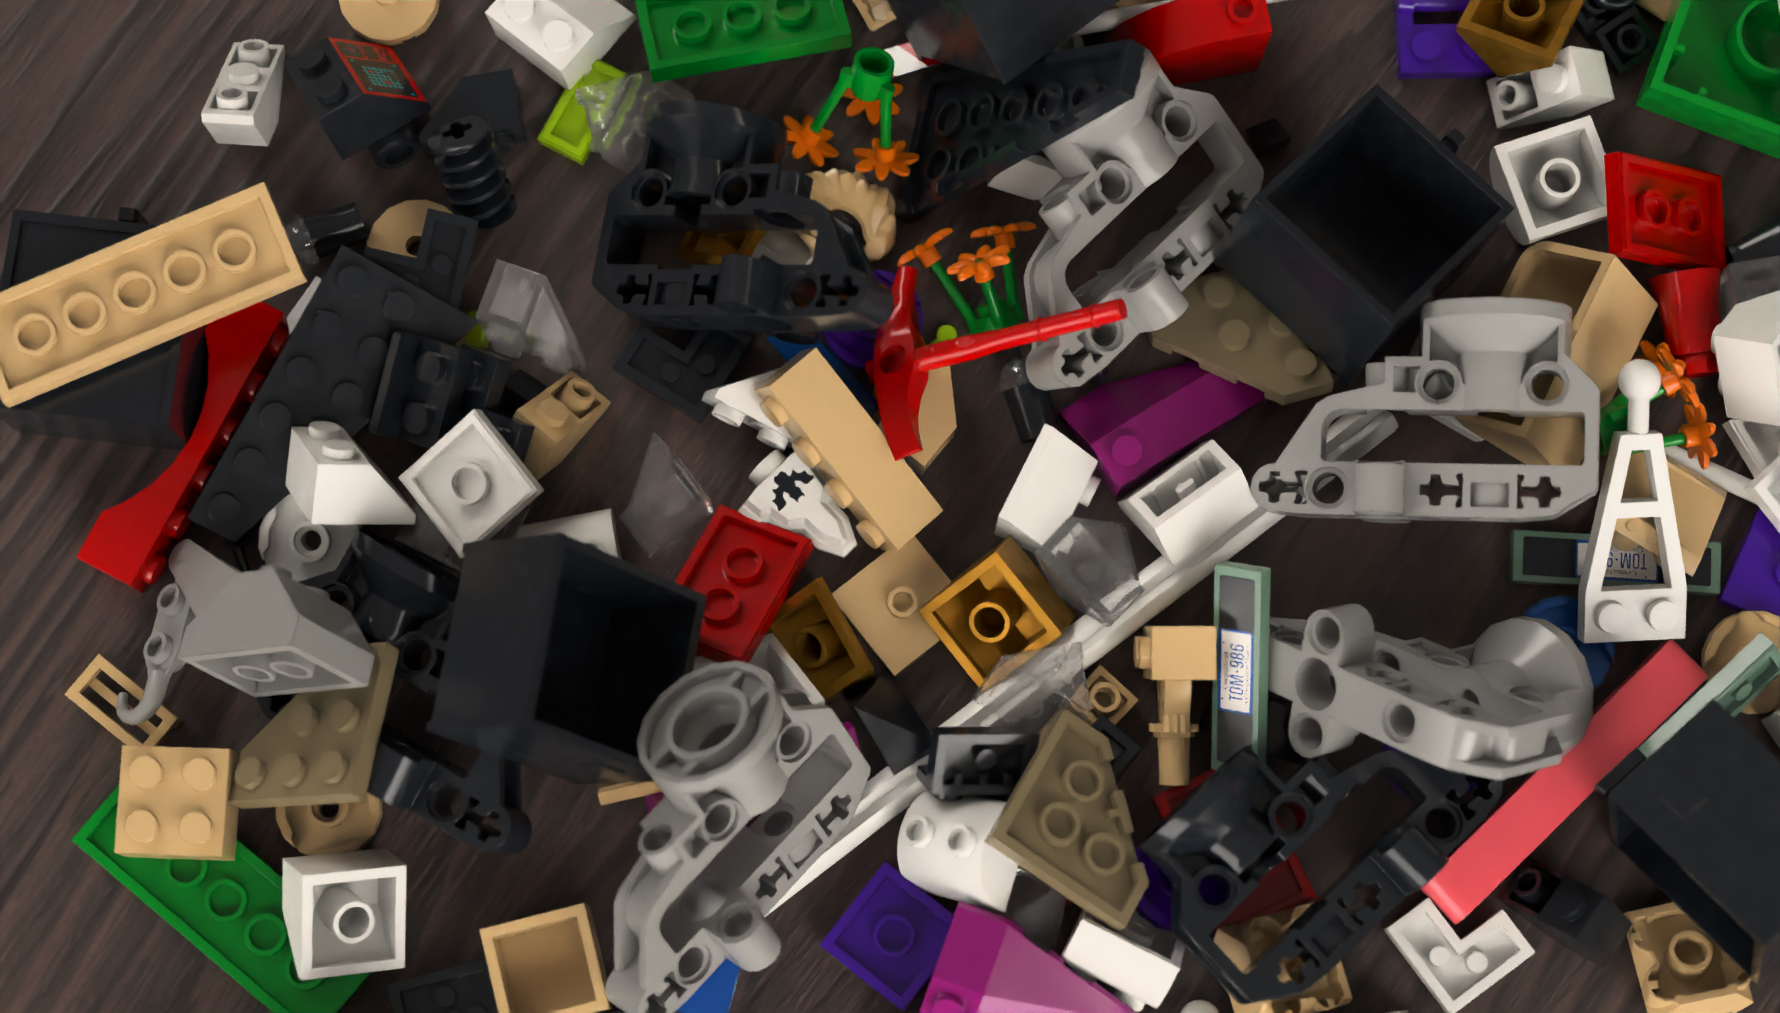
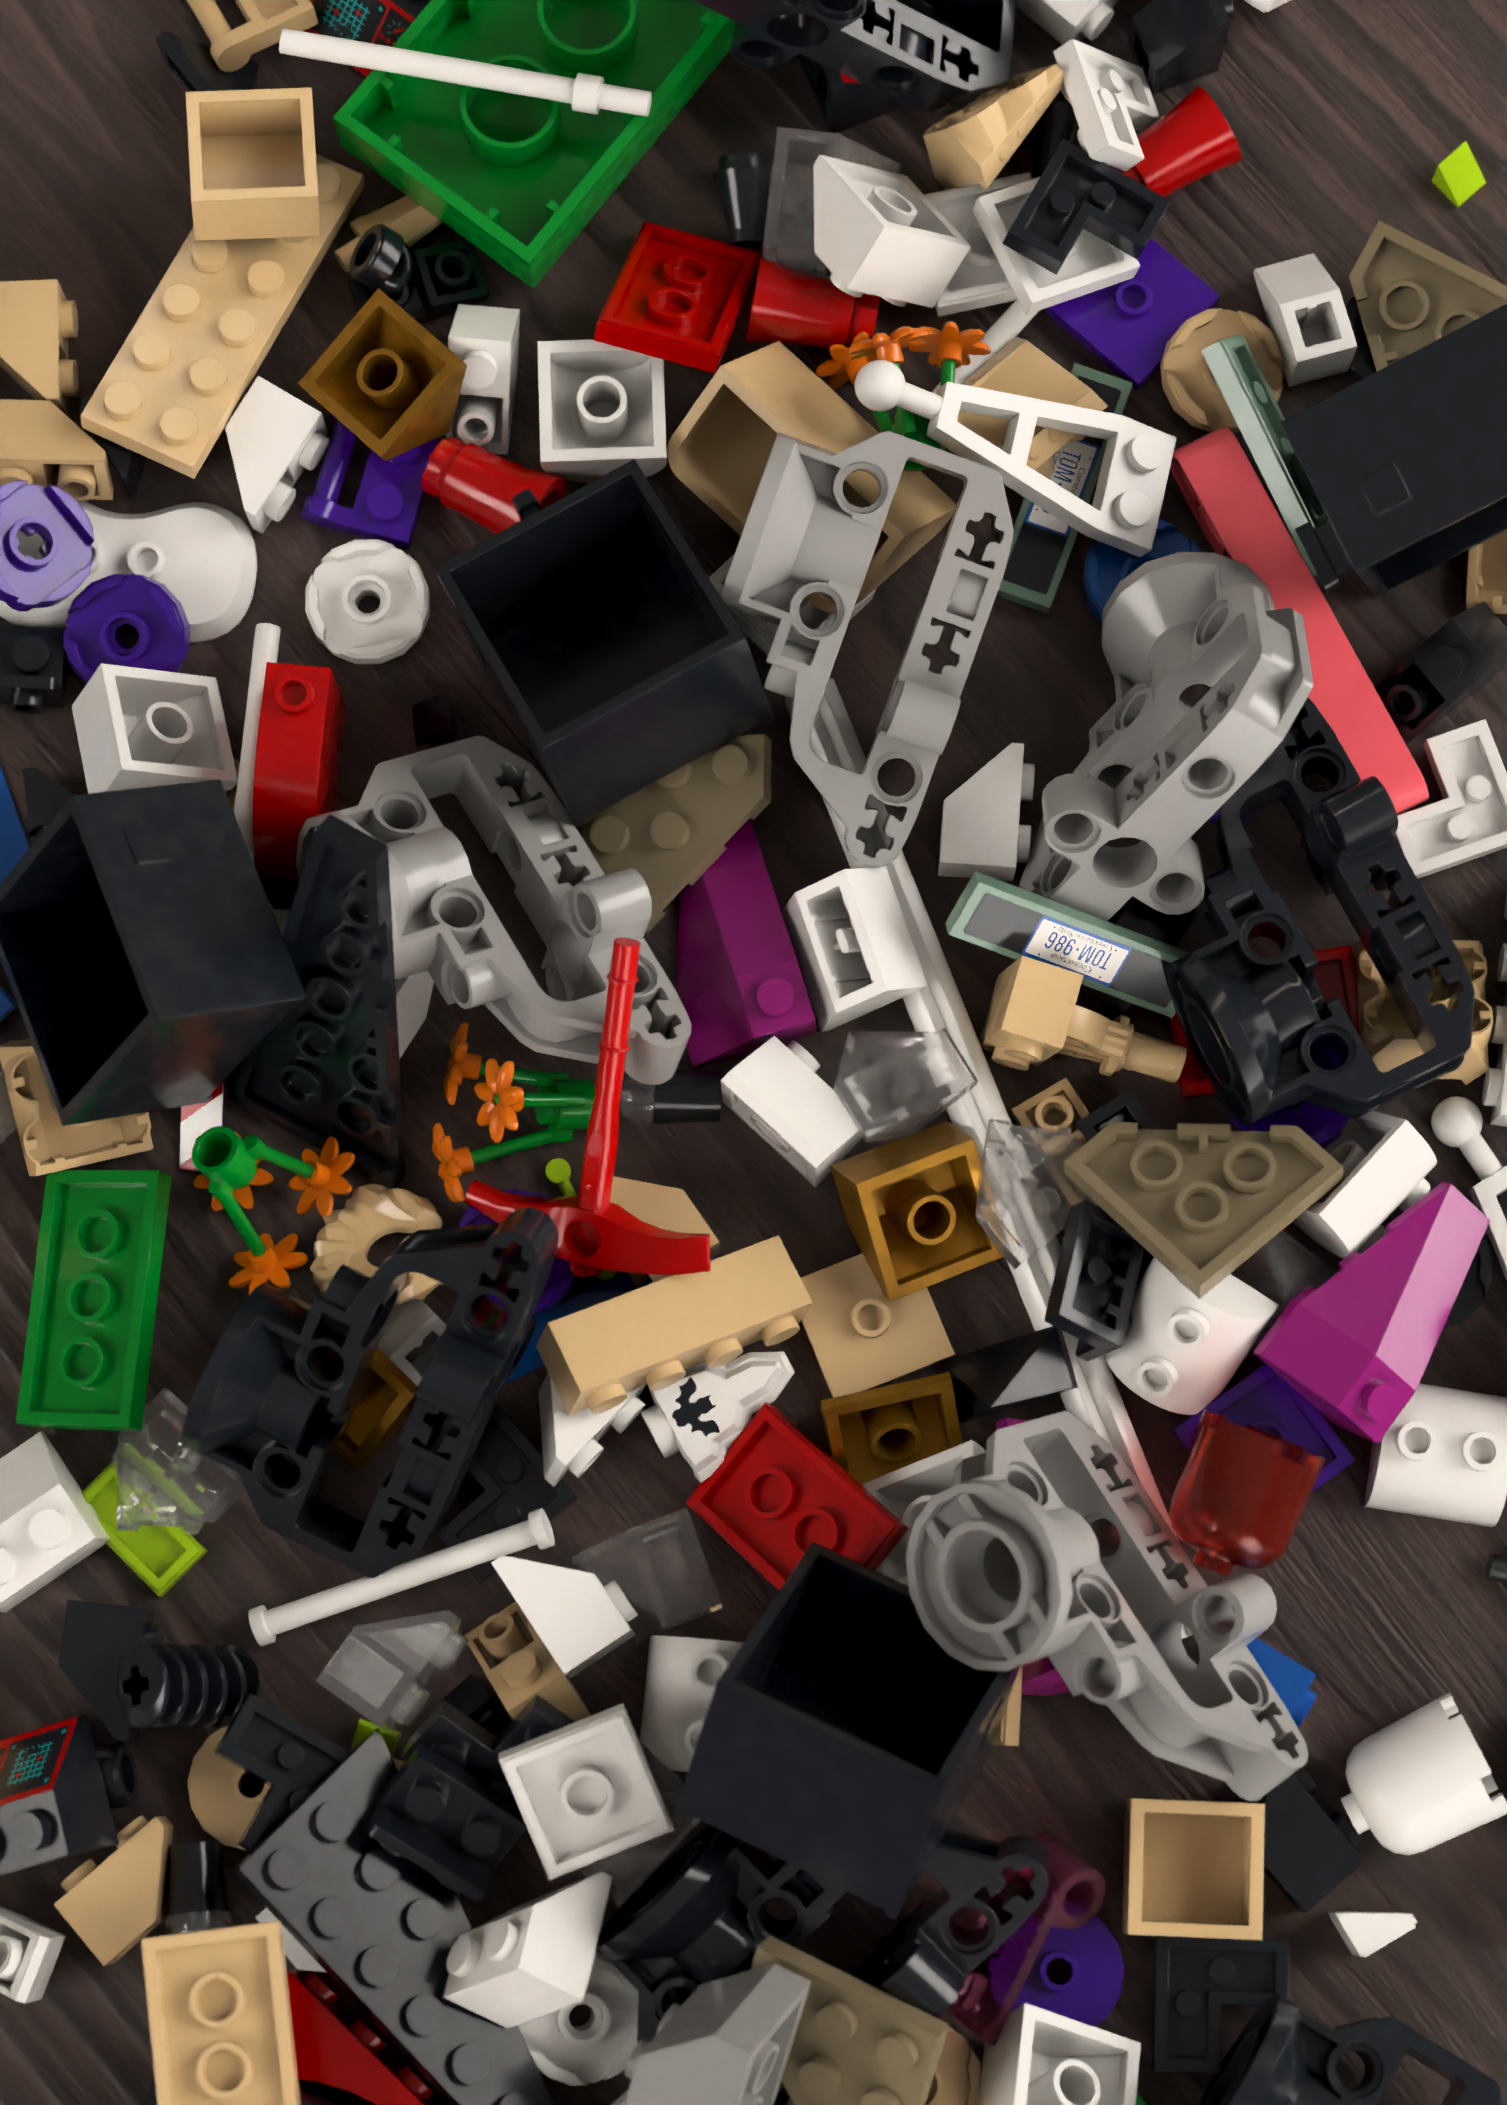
camera: 70 degrees left, 0 degrees up
(311, 180) = (125, 1894): none -> tan slope
(472, 896) = (1094, 1975): none -> dark purple plate
(495, 876) = (994, 1985): none -> clear pink door
(606, 435) = (569, 1610): none -> white slope
(662, 394) = (268, 1623): none -> white bar
(845, 922) = (1241, 1494): none -> clear red cylinder
(1325, 575) = (983, 819): none -> white slope
(1349, 34) = (362, 571): none -> white plate
(1467, 105) = (485, 483): none -> red plant

